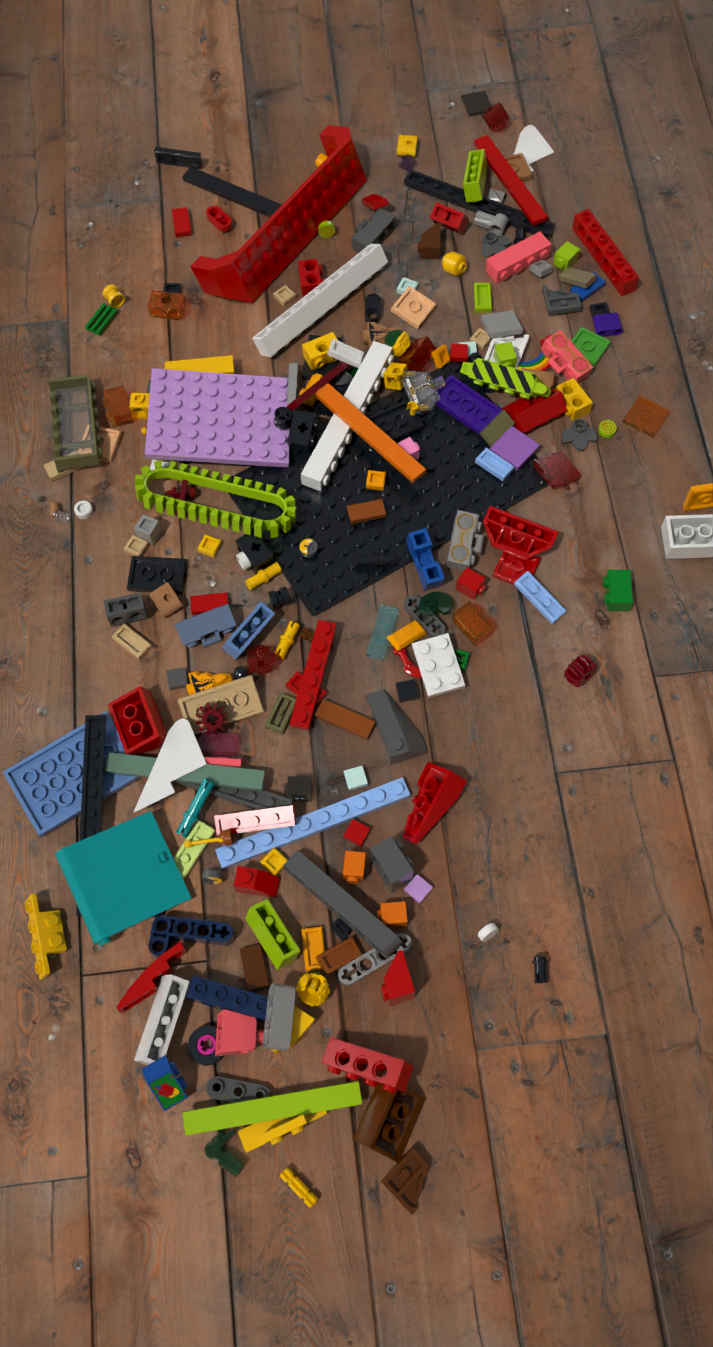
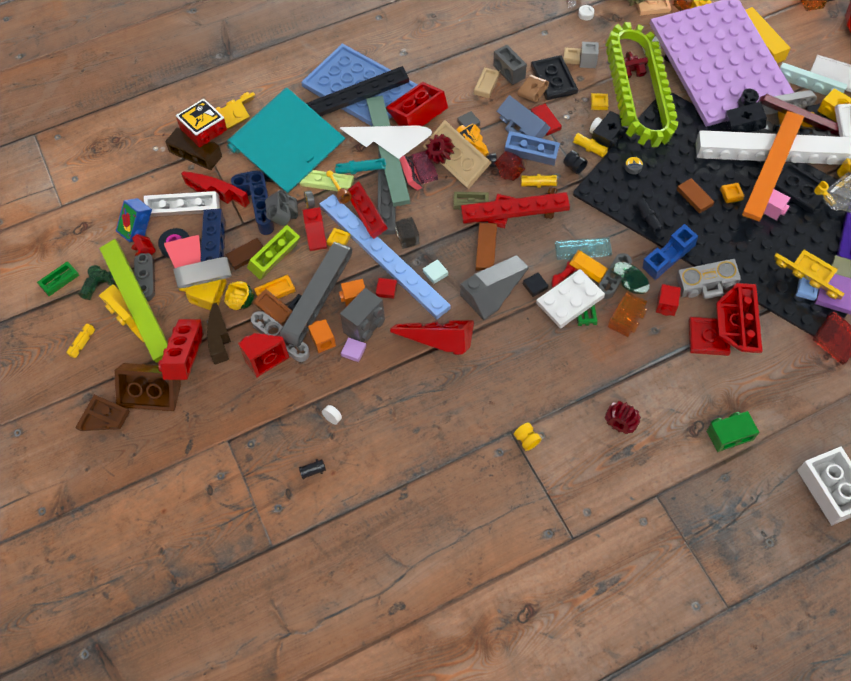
camera: 70 degrees right, 5 degrees down
(60, 964) = (201, 122): none -> piece
(79, 988) = (182, 146): none -> dark brown brick
(192, 1180) = (59, 280): none -> green tile
(198, 1081) = (143, 245): none -> red tile
(215, 909) = (281, 208): none -> dark grey piece
(277, 356) = (811, 80): none -> light aqua plate
(350, 1025) = (217, 335): none -> dark brown slope
(490, 455) = (812, 269): none -> yellow bracket
(540, 597) = (686, 363): light blue tile -> none
(570, 759) = (527, 436): none -> yellow wheel

